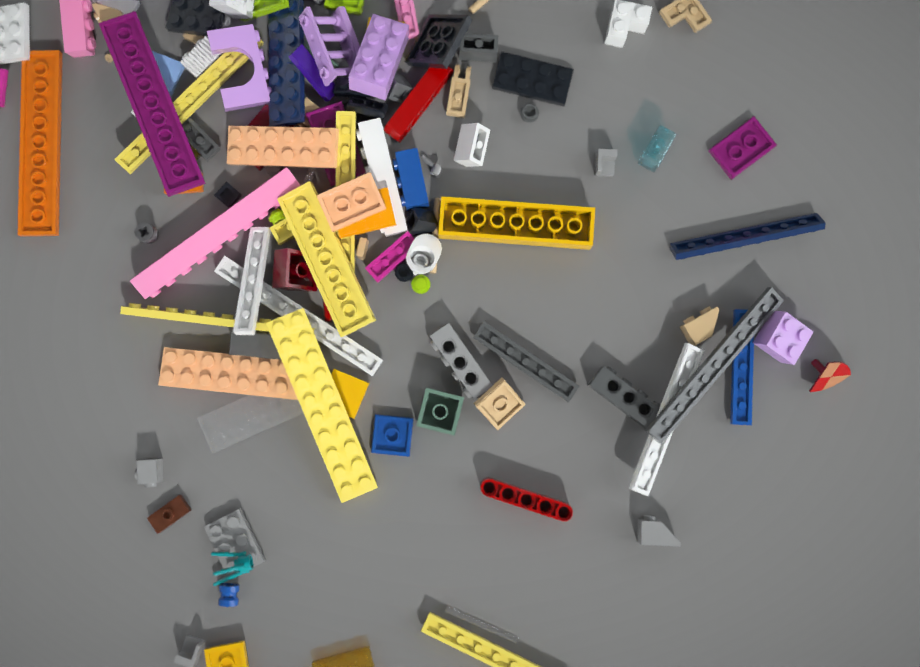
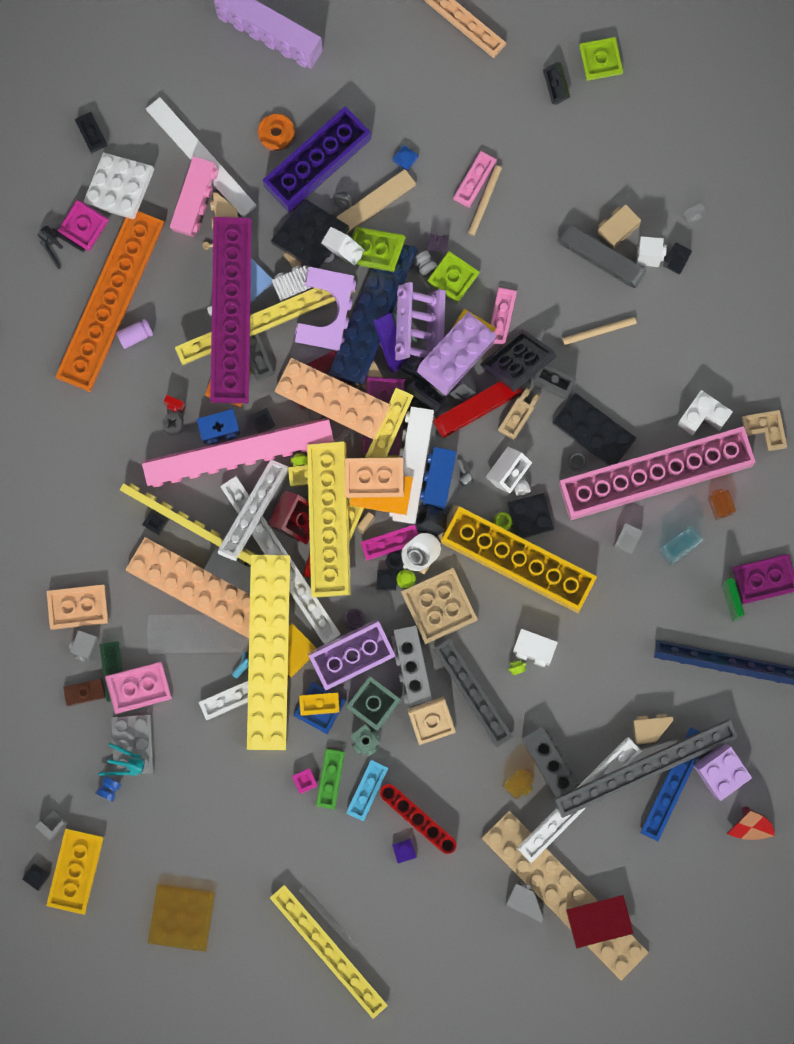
camera: 25 degrees right, 5 degrees down
(75, 164) = (134, 333): none -> lavender piece
(128, 438) = (77, 607): none -> light nougat plate
(139, 213) = (173, 404): none -> red plate
(168, 329) = (155, 522): none -> black plate
(180, 219) = (208, 427): none -> blue brick
(187, 483) = (111, 662): none -> clear green plate
(216, 489) = (138, 687): none -> bright pink tile
(302, 467) = (225, 701): none -> white plate
(304, 429) = (244, 664): none -> medium azure bar
(390, 432) = (319, 704): none -> yellow plate
(391, 338) = (353, 616): none -> clear purple wheel
(400, 375) = (351, 654): none -> lavender brick
(403, 292) = (386, 580): none -> black plate
(407, 508) = (304, 781): none -> dark pink plate
(429, 496) = (330, 778): none -> bright green tile
(444, 441) = (365, 733): none -> sand green brick
(461, 295) = (439, 606): none -> tan plate
(468, 492) = (367, 790): none -> medium azure plate
(486, 193) = (503, 520): none -> lime plate
(490, 157) = (522, 488): none -> white hinge
(509, 179) = (530, 516): none -> black plate
(525, 533) = (404, 851): none -> dark purple plate
(556, 321) = (517, 667): none -> lime plate
(564, 297) = (535, 648): none -> white brick
(604, 427) = (519, 784): none -> clear yellow brick
(607, 92) = (656, 473): none -> bright pink brick
(676, 96) = (721, 504): none -> clear orange brick
(691, 512) = (558, 890): none -> tan plate
(725, 177) = (733, 599): none -> green tile
(732, 522) = (599, 921): none -> dark red tile

